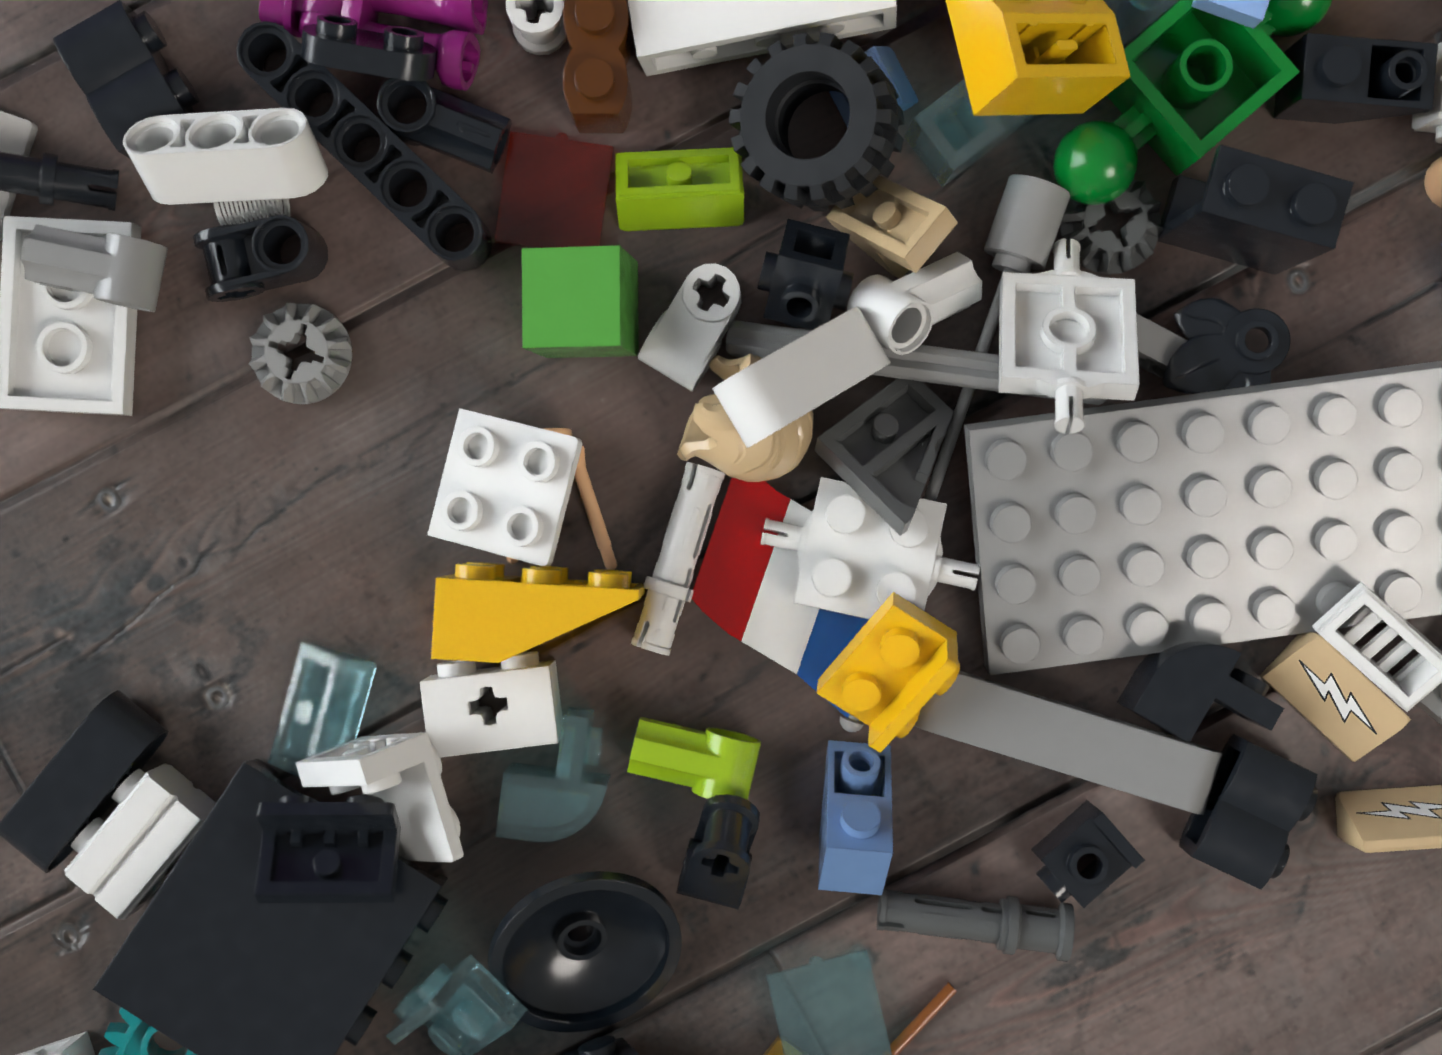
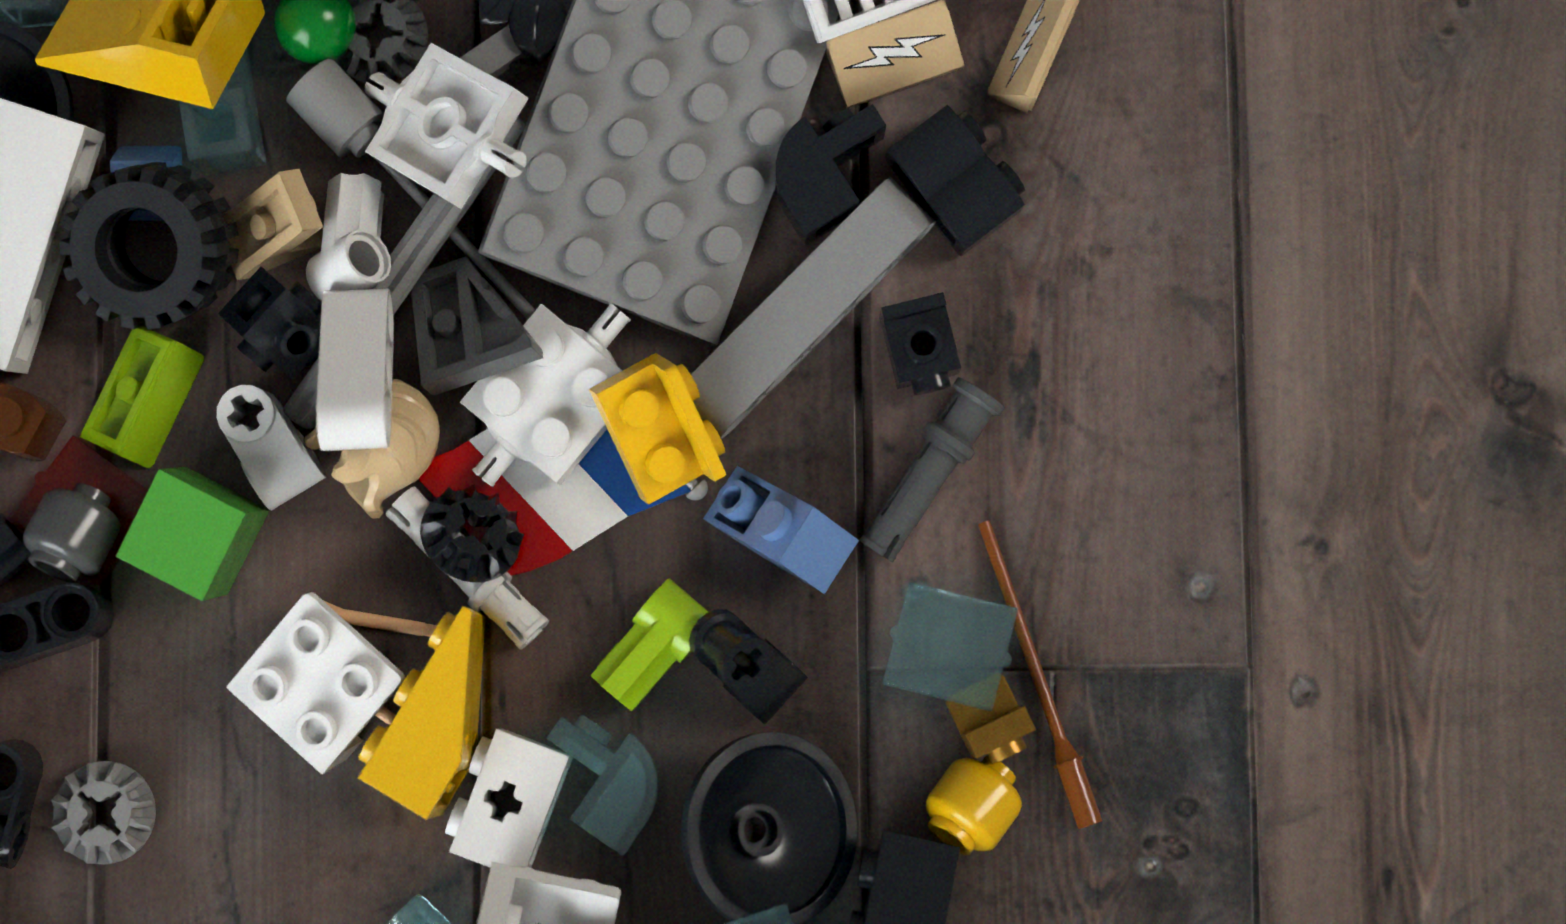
camera: 70 degrees left, 5 degrees down
(525, 194) = (71, 532): none -> dark grey head
(687, 561) = (466, 557): none -> black gear

